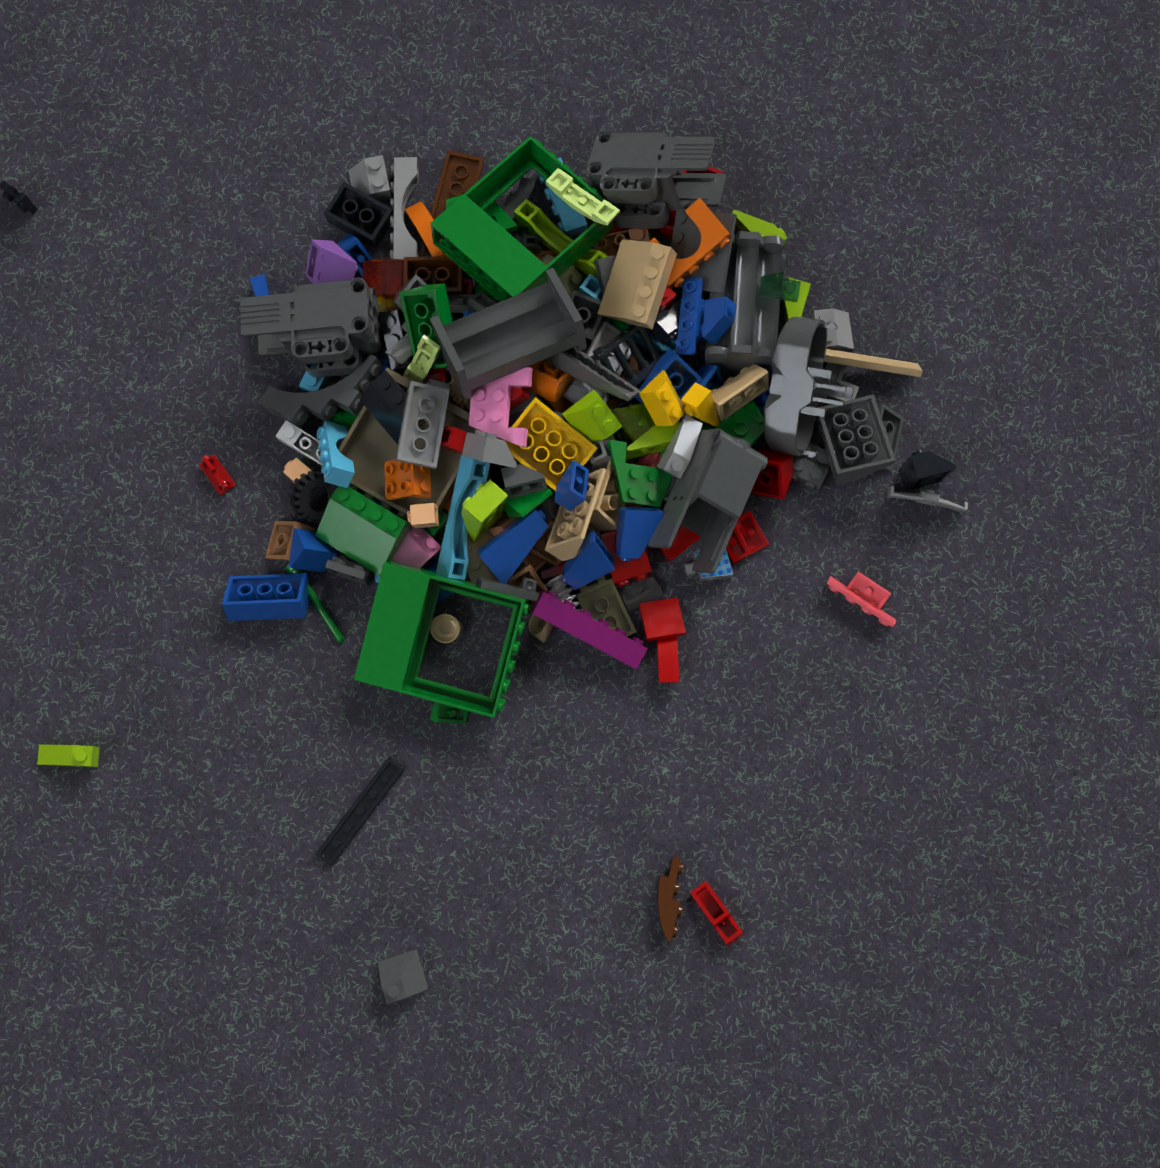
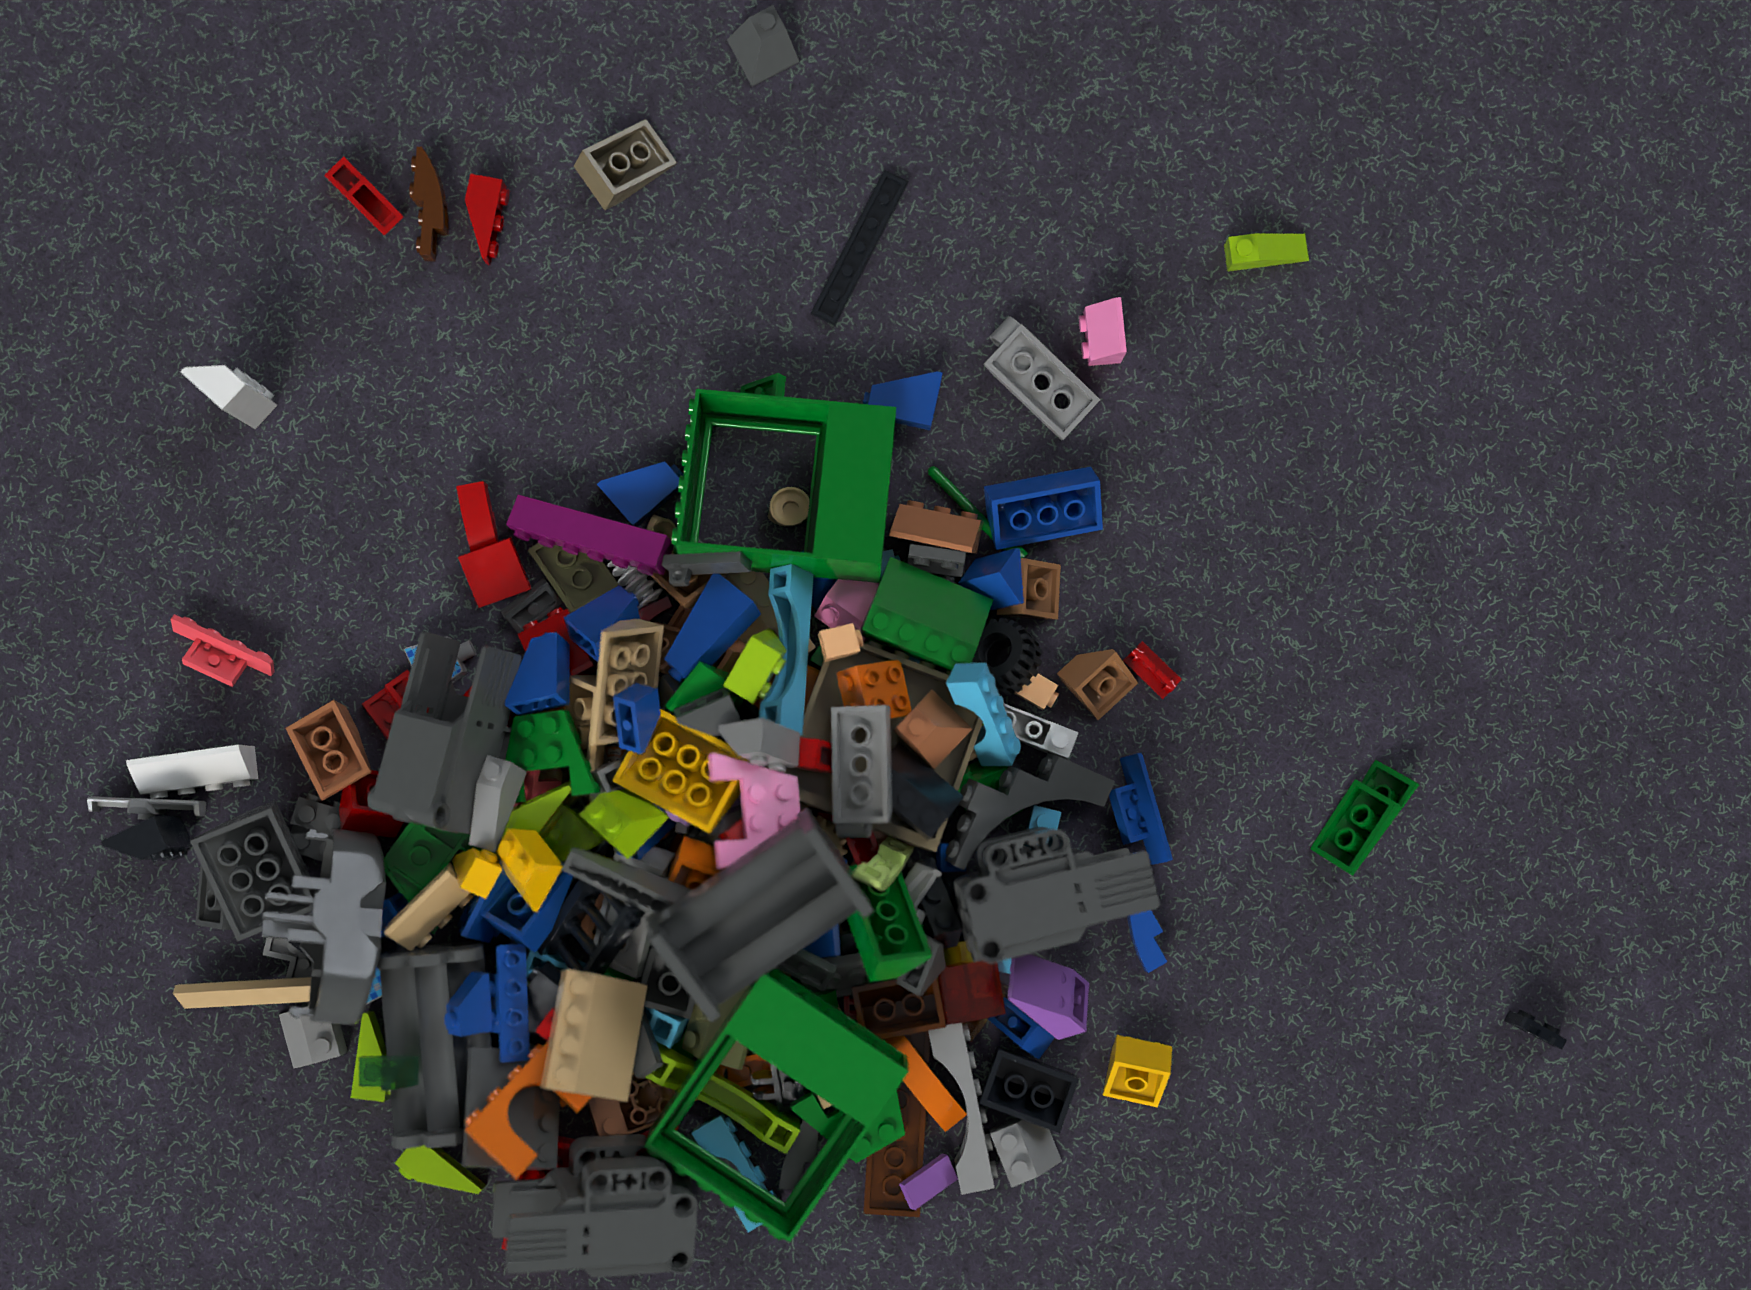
camera: 175 degrees right, 5 degrees up
(95, 350) = (1363, 817): none -> green slope
(196, 713) = (1103, 332): none -> bright pink slope
(248, 381) = (1138, 811): none -> blue bracket
(256, 472) = (1098, 680): none -> medium nougat slope
(261, 702) = (1021, 360): none -> light grey hinge
(284, 216) = (1138, 1070): none -> yellow slope
(343, 593) = (937, 527): none -> nougat slope
(345, 691) = (912, 396): none -> blue slope
(372, 449) = (932, 729): none -> nougat slope
(437, 170) = (928, 1181): none -> medium lavender tile
(520, 903) = (623, 163): none -> dark tan slope
(547, 658) = (642, 490): none -> blue slope
(580, 200) = (692, 1147): yellowish green slope -> none
(629, 888) = (484, 204): none -> red slope
(793, 512) = (330, 748): none -> nougat slope
(829, 771) = (233, 392): none -> white slope
(890, 517) = (194, 769): none -> white slope

